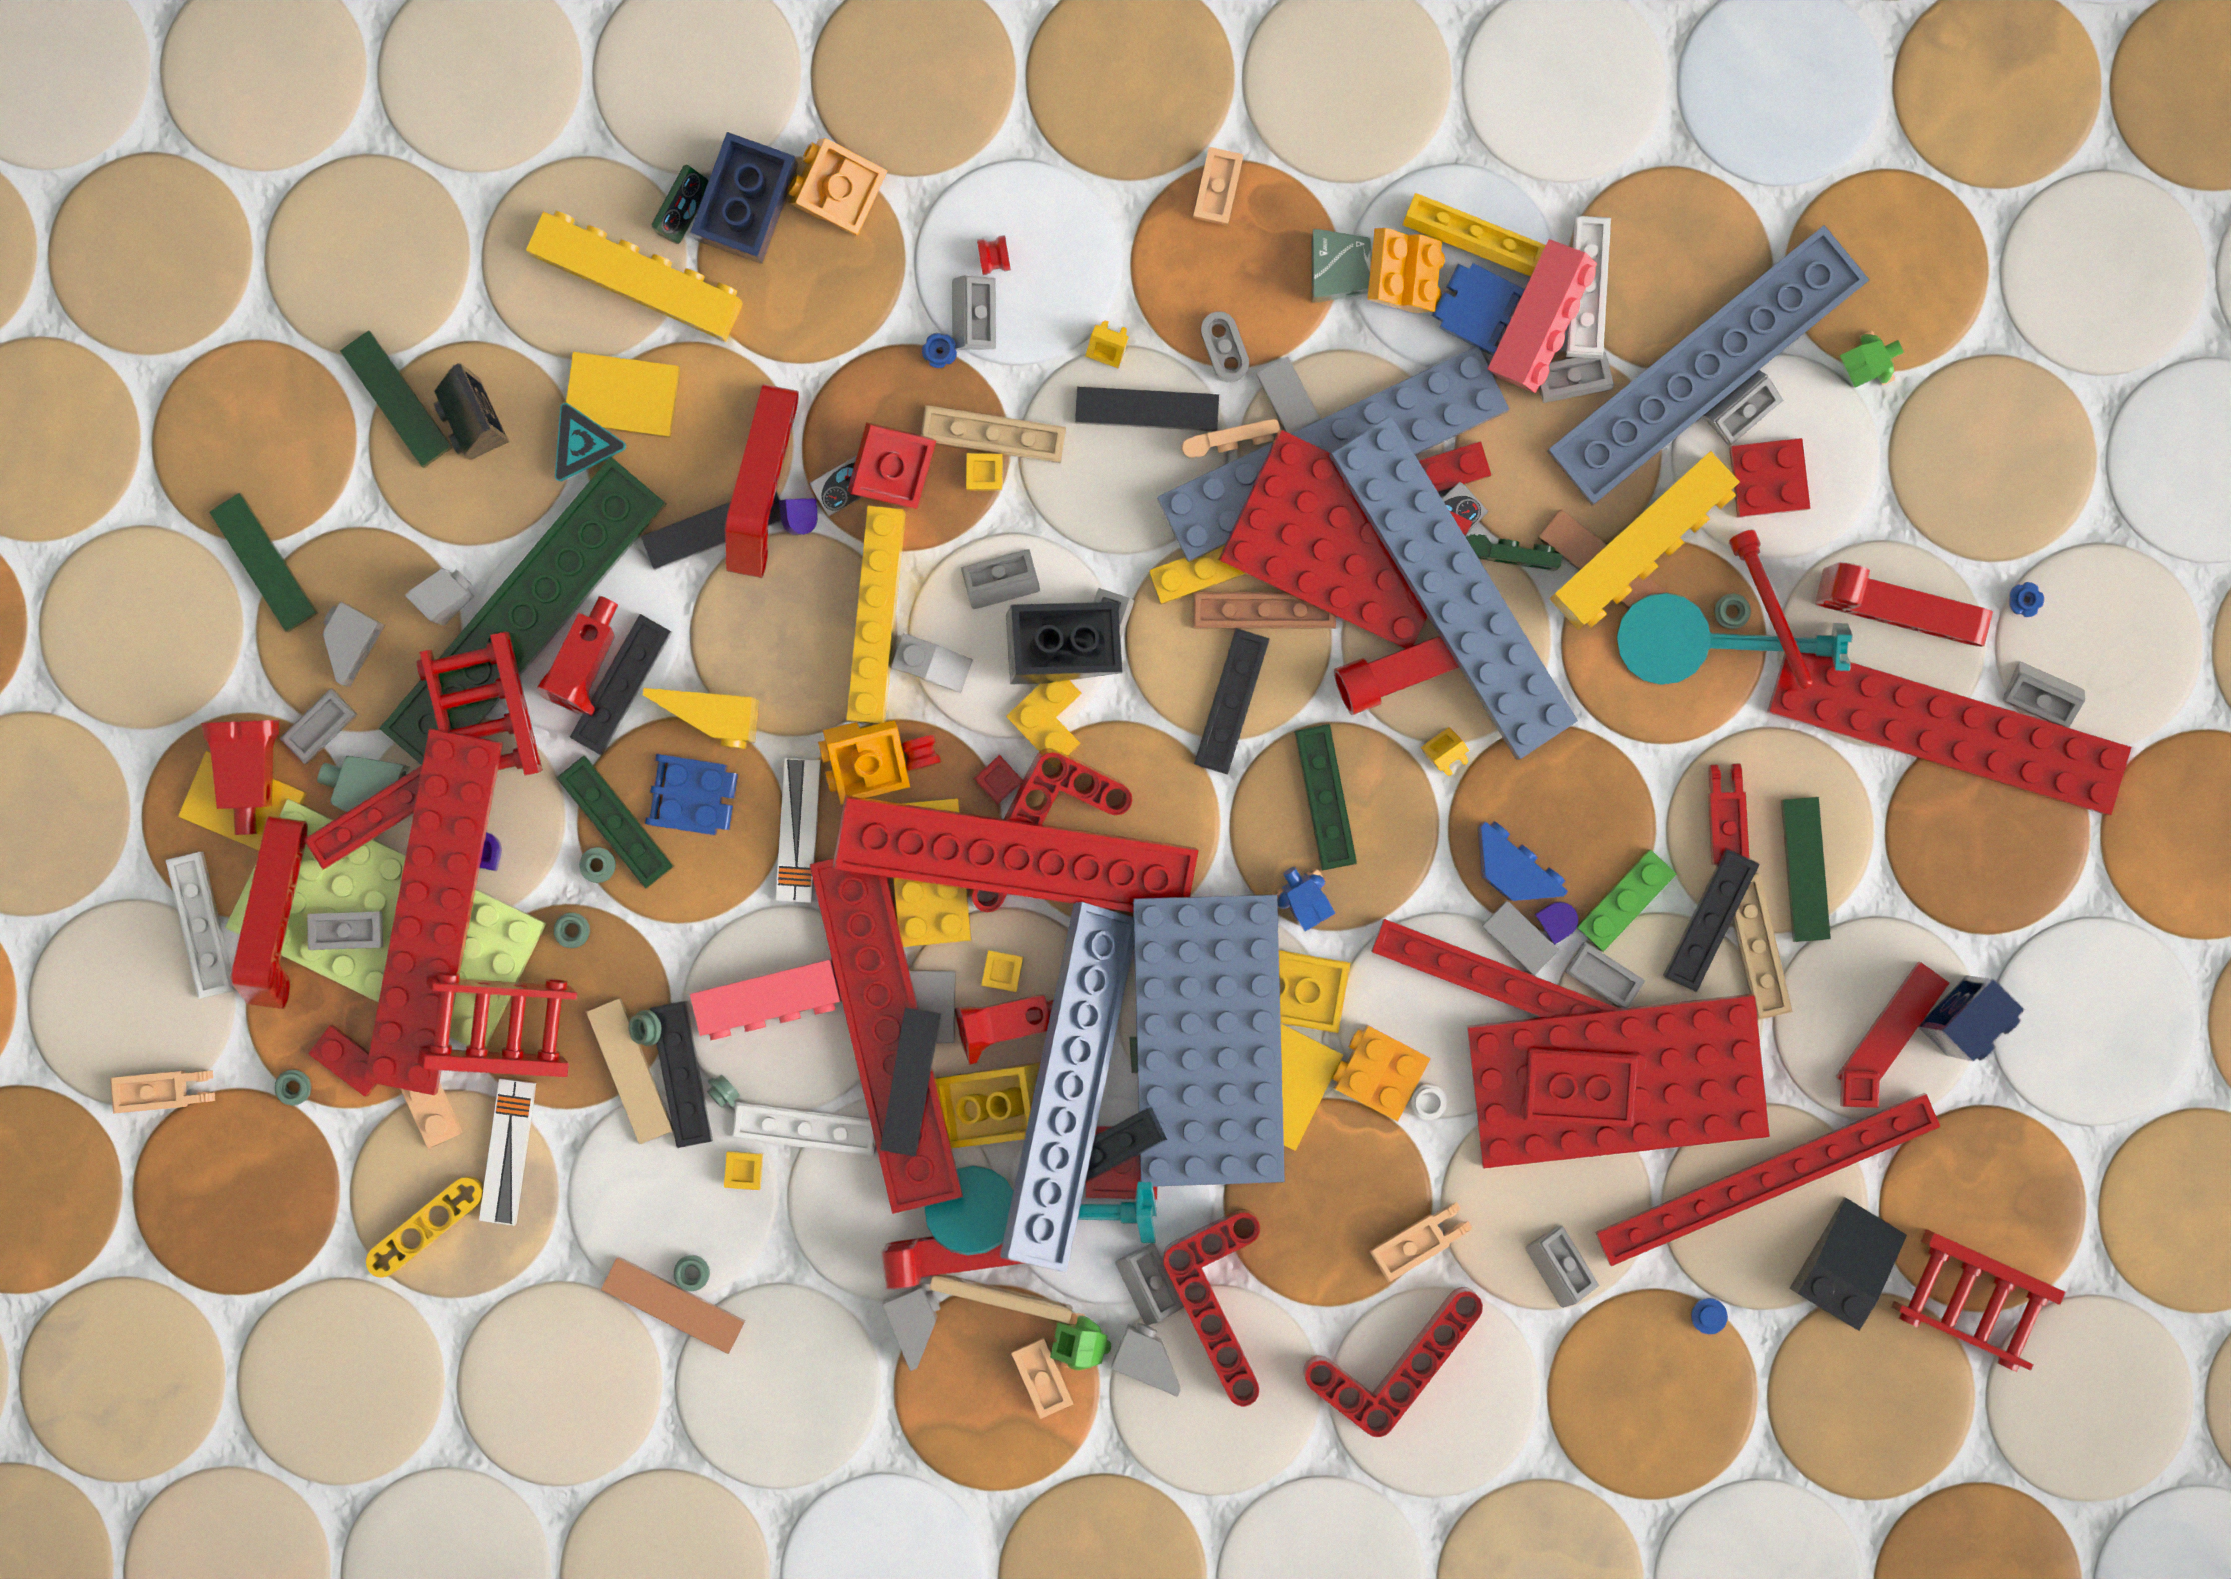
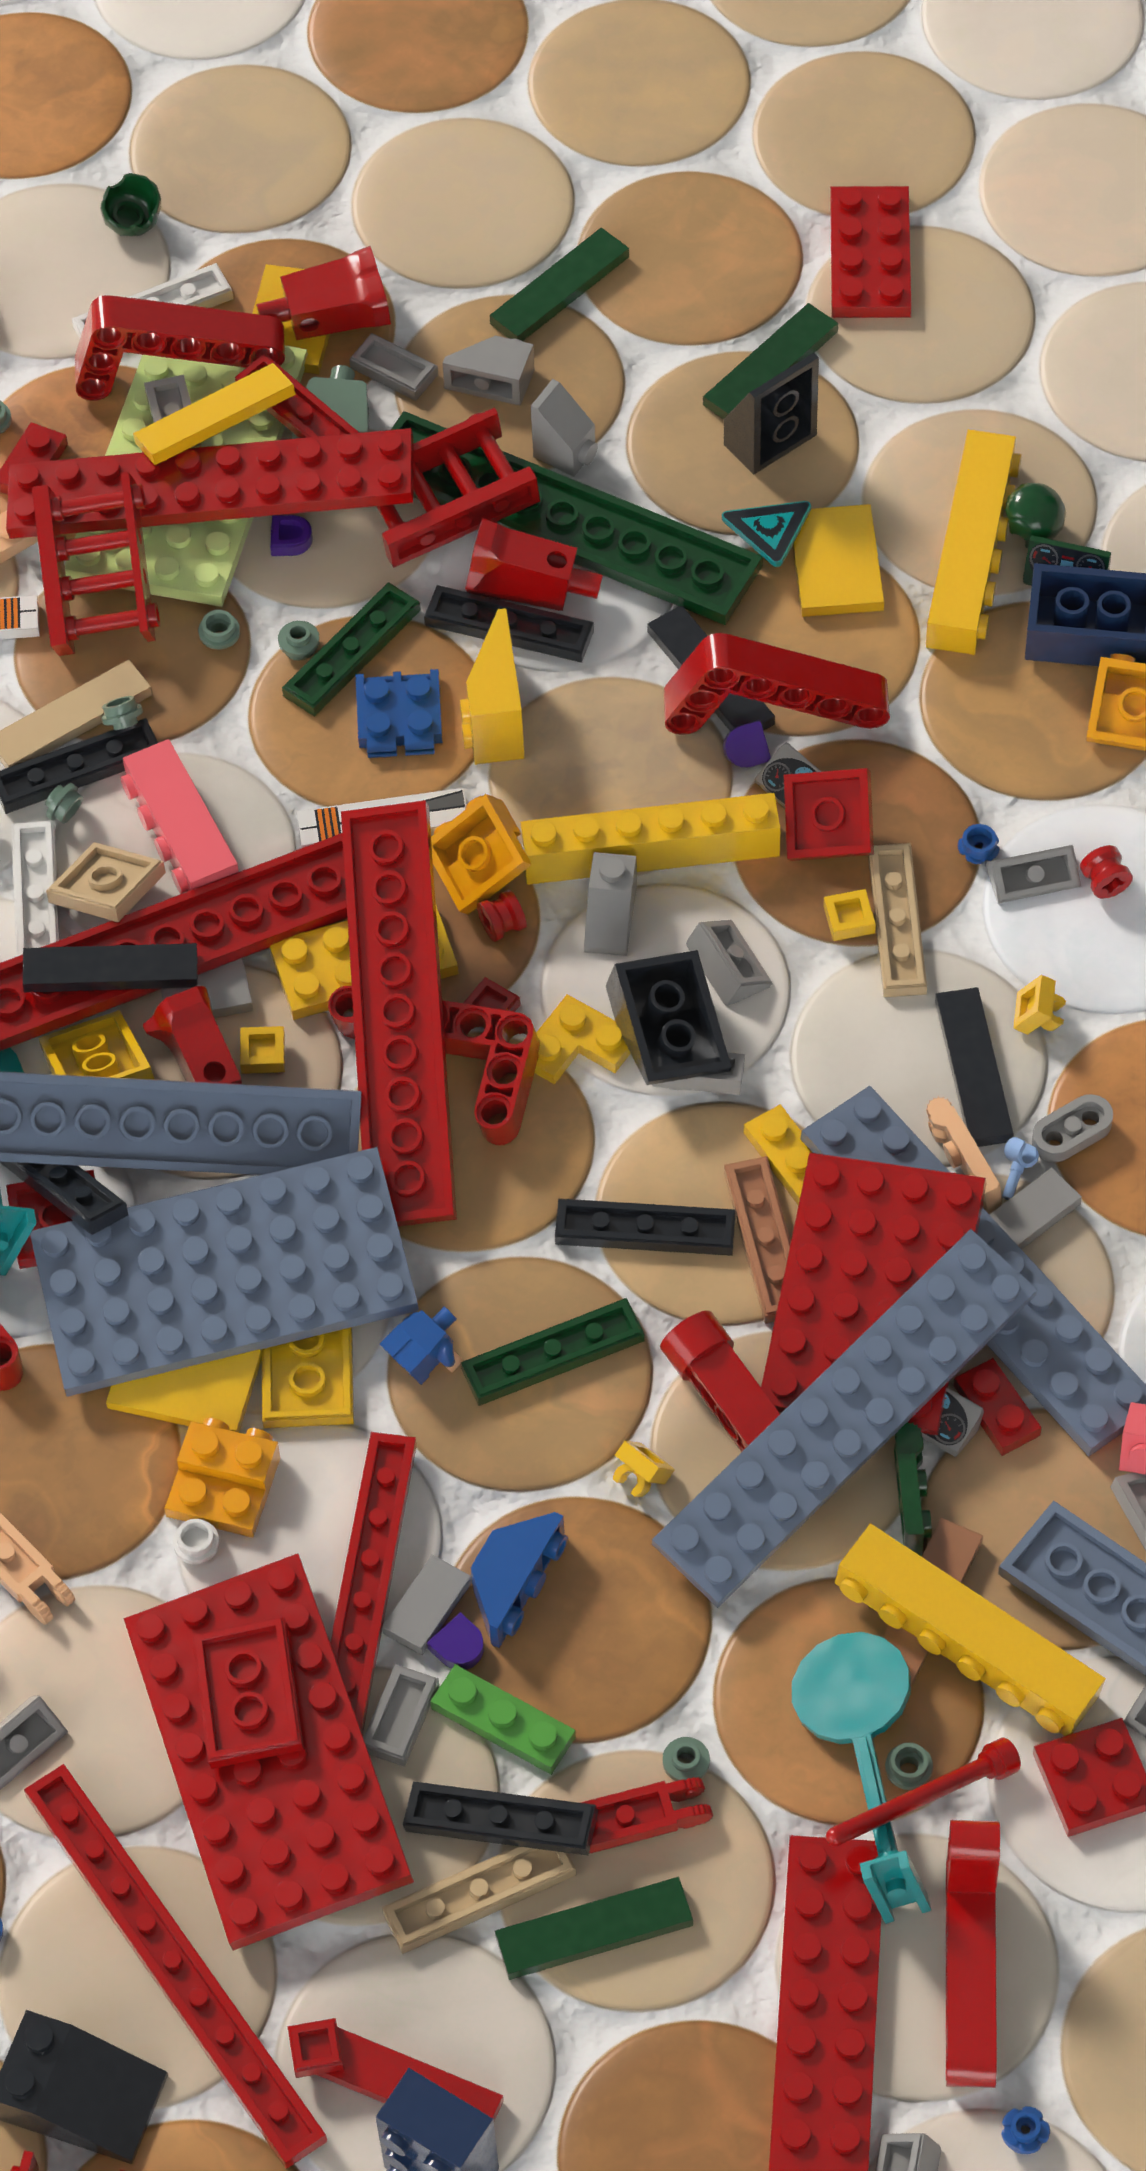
camera: 80 degrees right, 30 degrees down
(86, 925) = (131, 205): none -> dark green hair
(290, 281) = (870, 252): none -> red plate
(367, 895) = (214, 414): none -> yellow tile
(624, 215) = (1035, 511): none -> dark green hair
(814, 1070) = (106, 882): none -> tan tile
(1241, 391) = (1022, 1156): none -> light blue hand
(1681, 777) = (678, 1770): none -> sand green plate

